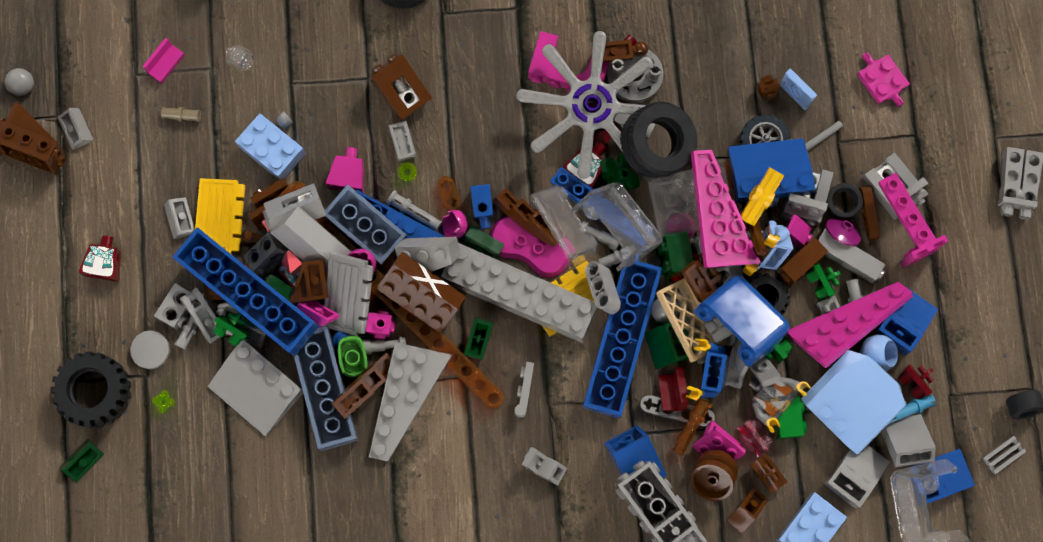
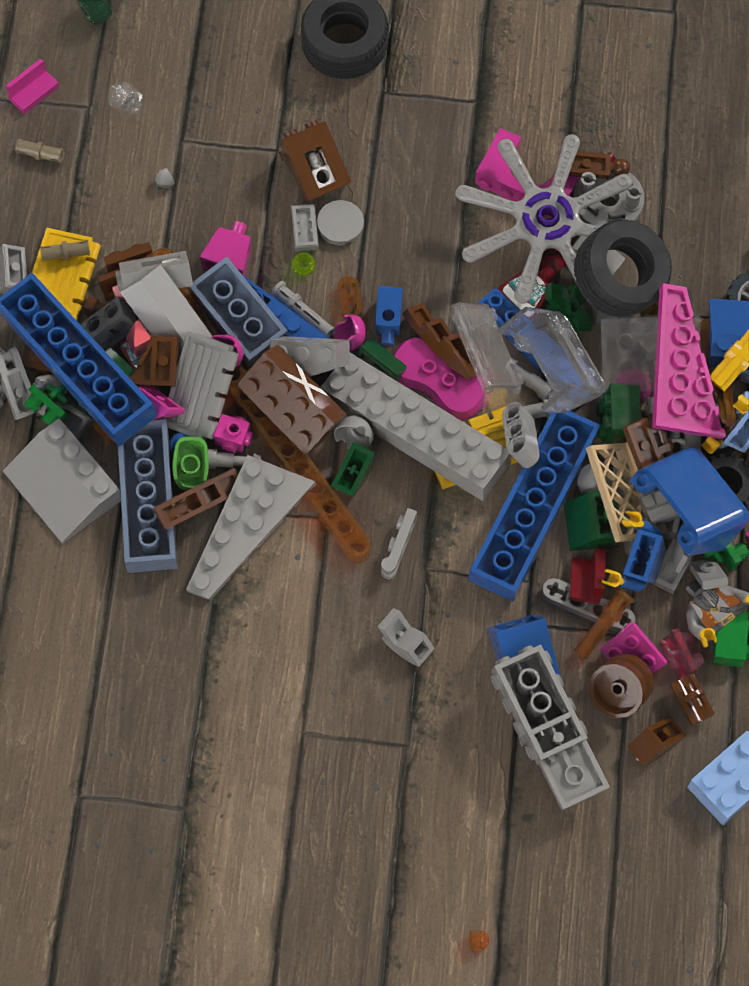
camera: 10 degrees right, 10 degrees down
(218, 197) = (65, 250): none -> dark tan pin
(270, 147) = (140, 205): light blue brick -> none
(429, 131) = (340, 222): none -> light grey tile
(474, 306) = (354, 430): none -> light grey hair

